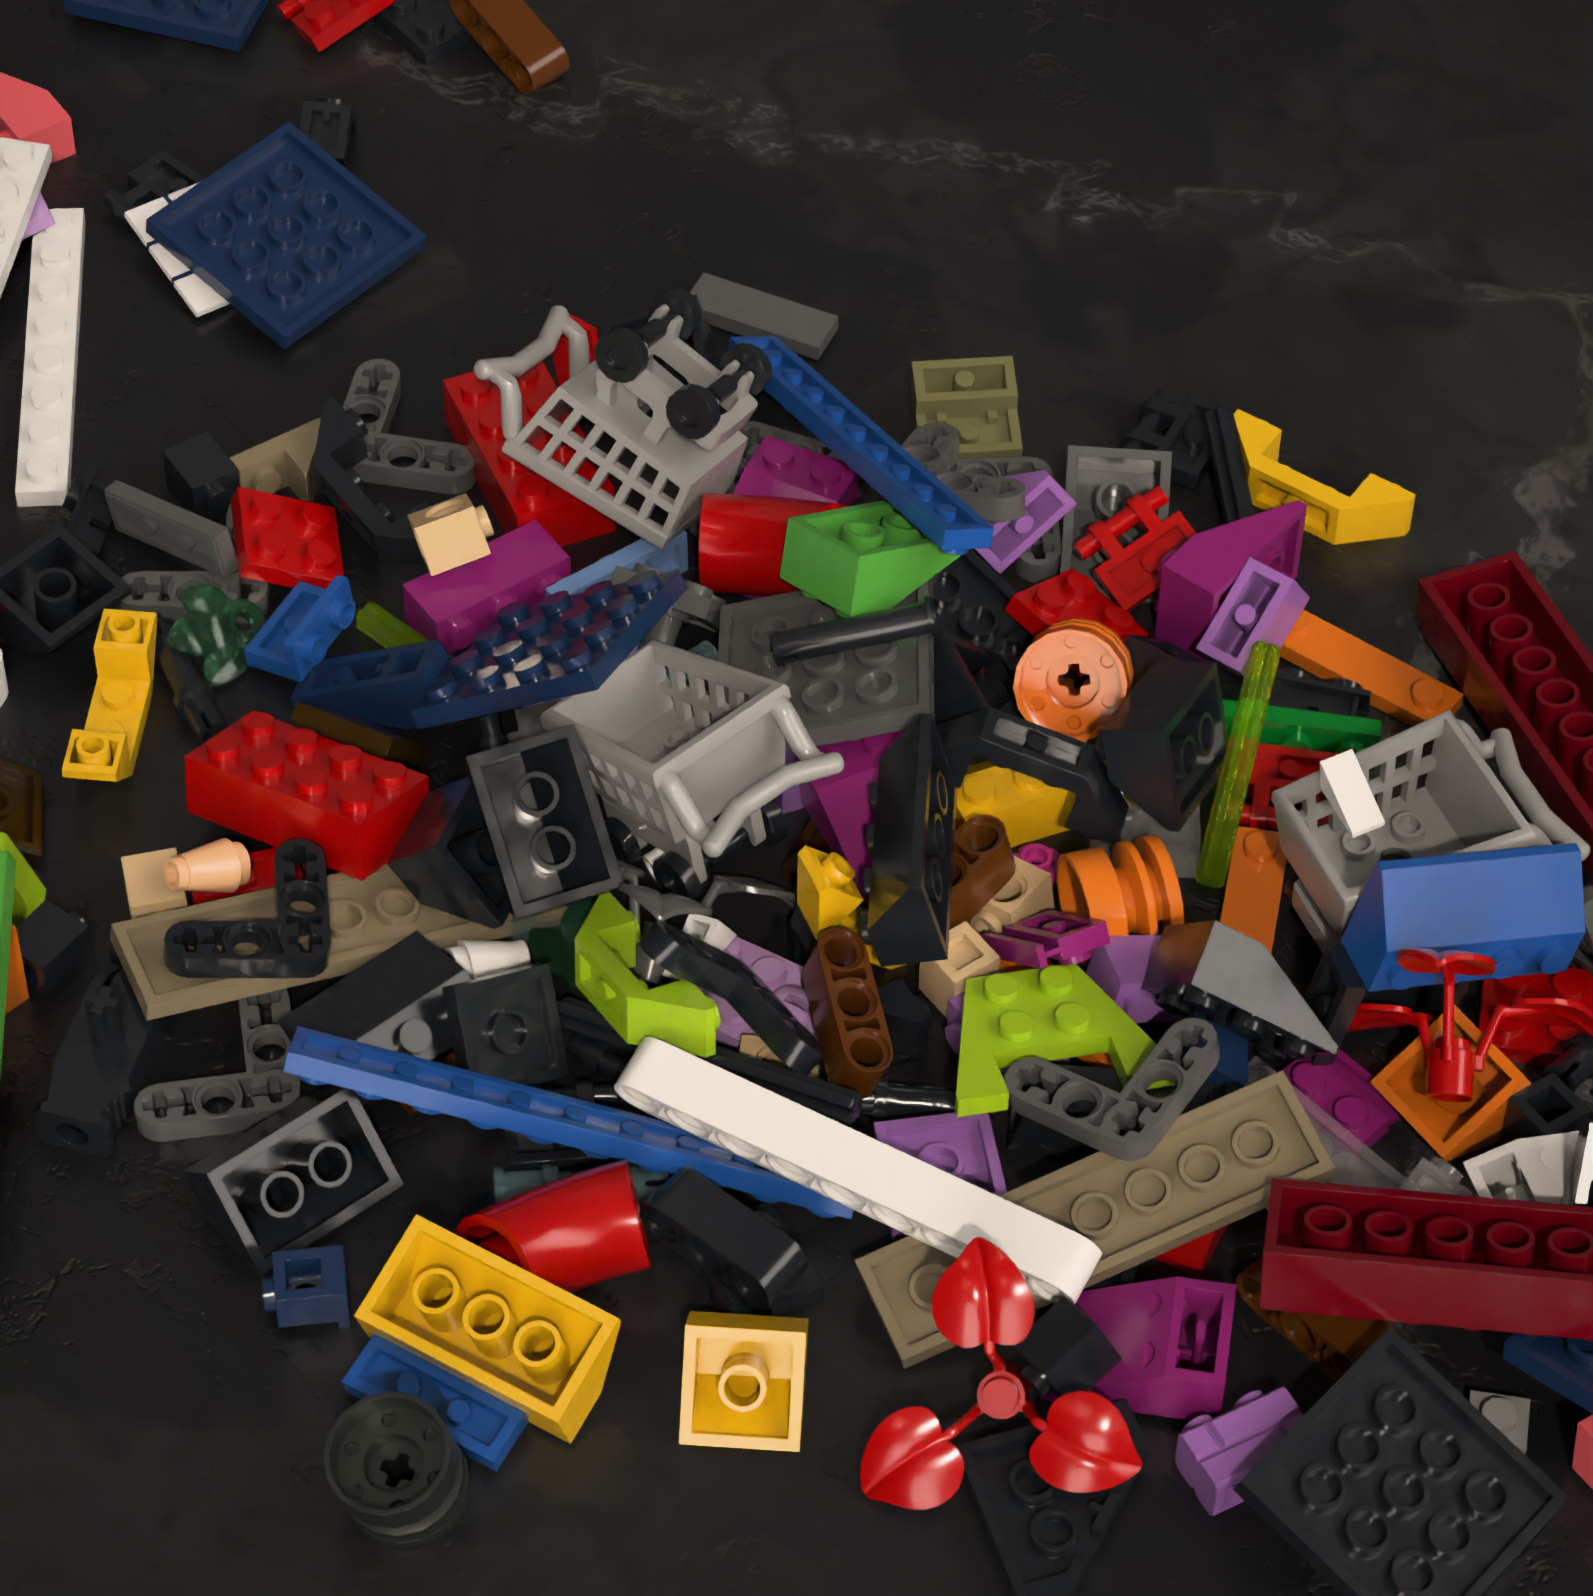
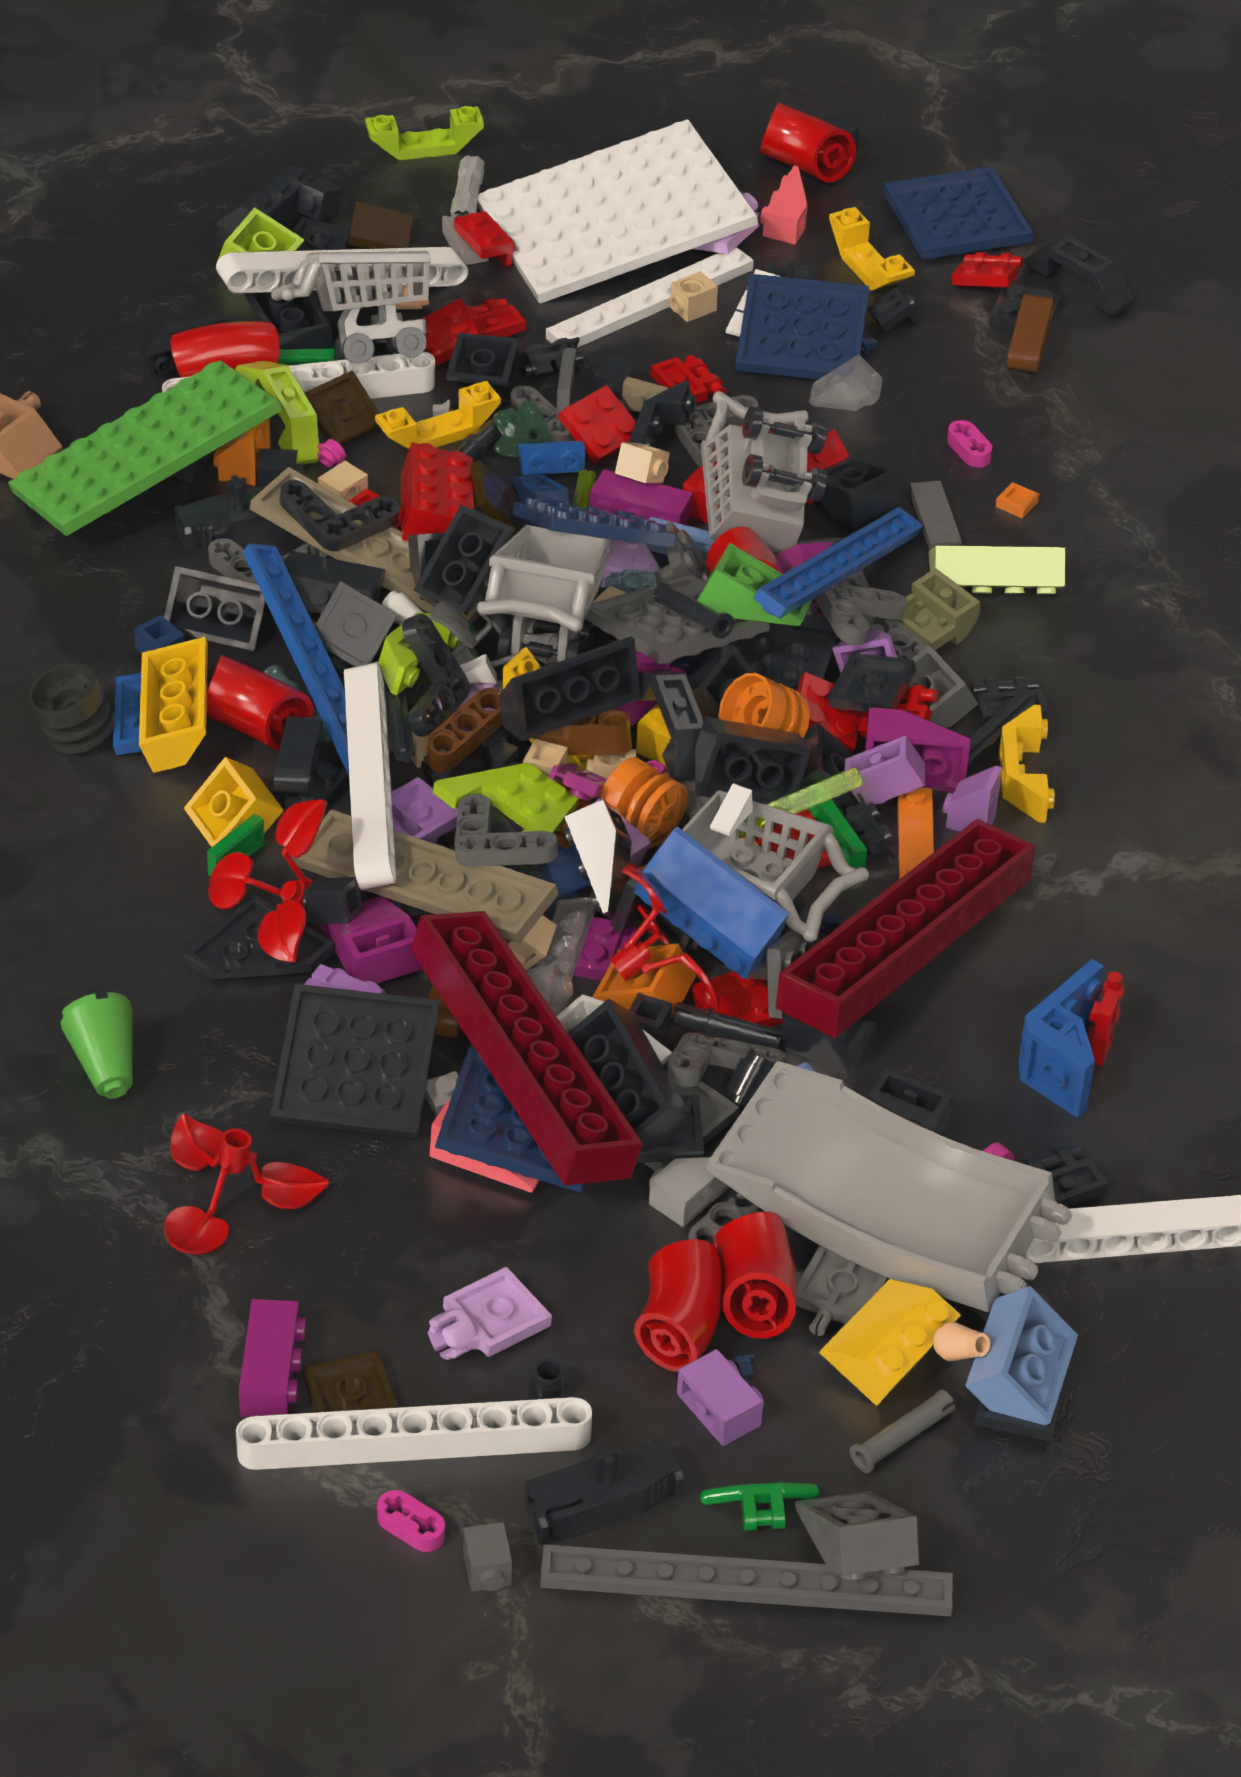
camera: 55 degrees right, 5 degrees down
(60, 869) = (331, 453): none -> dark pink plate
(73, 695) = (442, 408): none -> light grey piece
(103, 305) = (693, 296): none -> tan brick
(134, 81) = (852, 235): none -> yellow slope
(209, 868) = (359, 486): light nougat cone -> none
(264, 405) = (693, 370): none -> red plate
(440, 259) = (847, 386): none -> clear slope
(650, 207) = (964, 438): none -> dark pink beam
(796, 224) = (1017, 500): none -> orange tile
(834, 1417) = (244, 839): none -> green tile
(924, 309) = (1001, 567): none -> yellowish green slope
(1099, 540) = (871, 682): none -> black plate
(1363, 567) = (973, 799): none -> medium lavender slope

